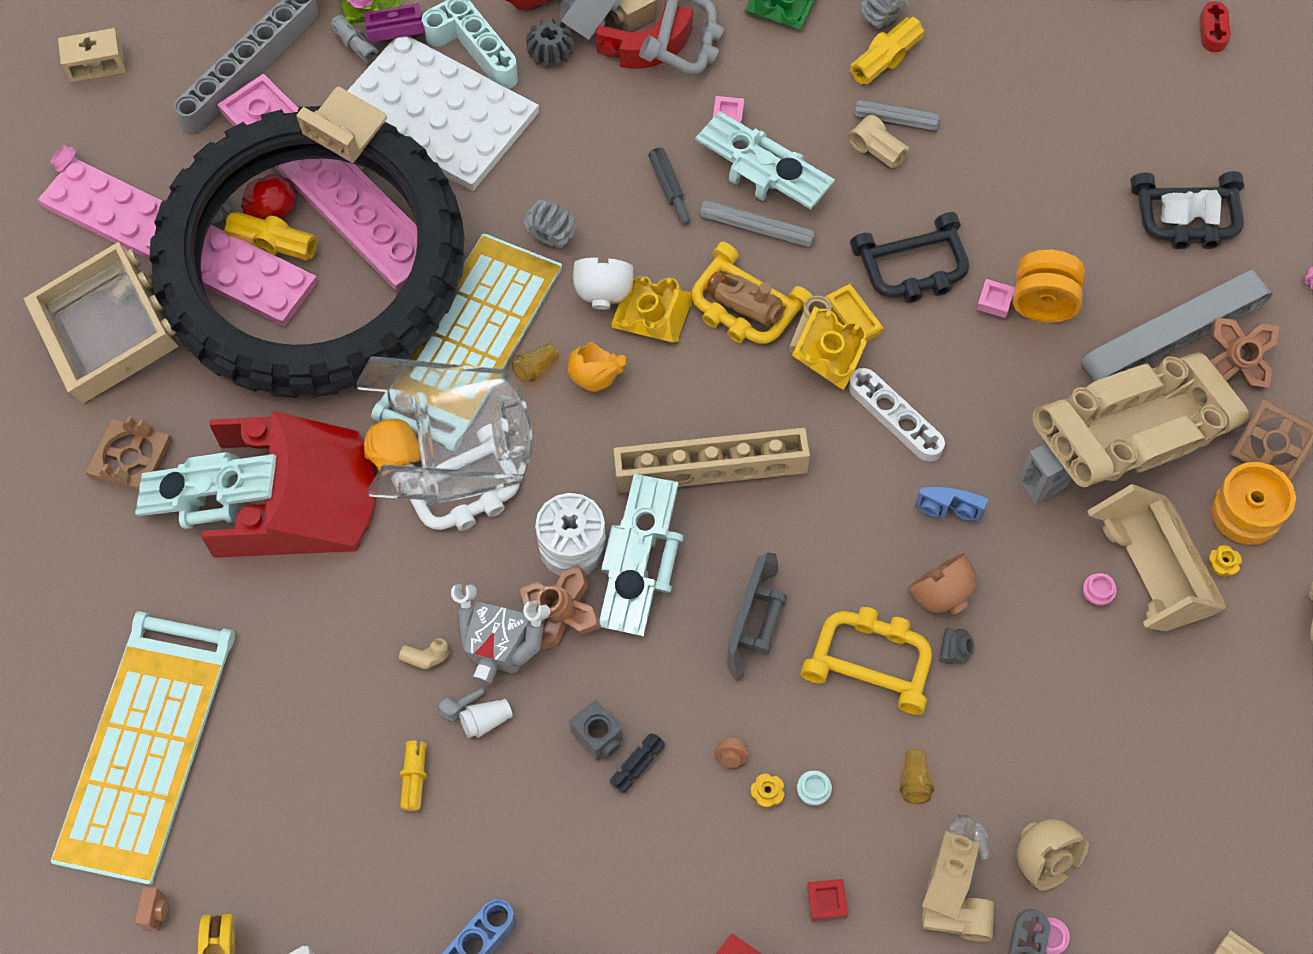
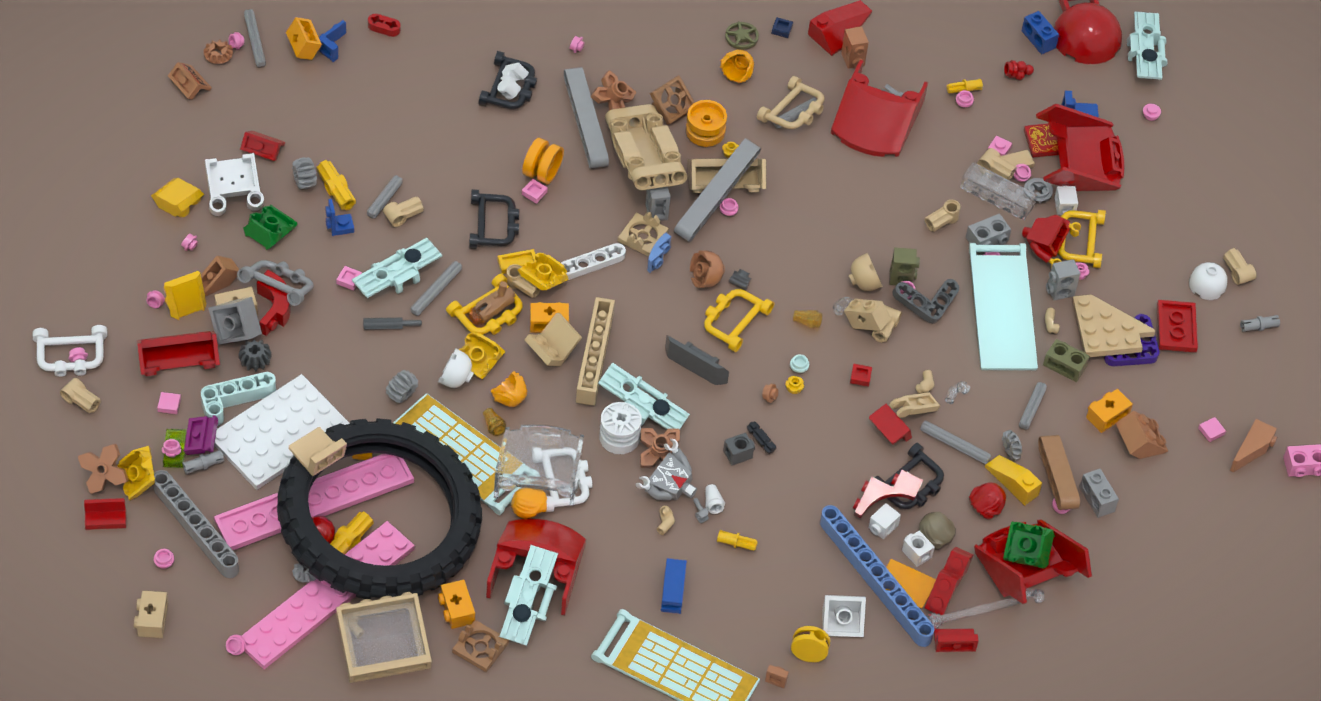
camera: 80 degrees left, 10 degrees down
(188, 43) = (163, 558): none -> bright pink plate
(188, 403) = (457, 604): none -> light orange brick
(293, 698) = (673, 586): none -> blue piece
(701, 397) = (555, 341): none -> tan bracket
(757, 382) = (542, 314): none -> light orange brick
(817, 68) = (338, 224): none -> blue bracket
(1009, 457) = (638, 243): none -> tan piece
(1089, 914) = (903, 265): none -> olive brick
(1118, 555) = (717, 190): none -> light grey beam

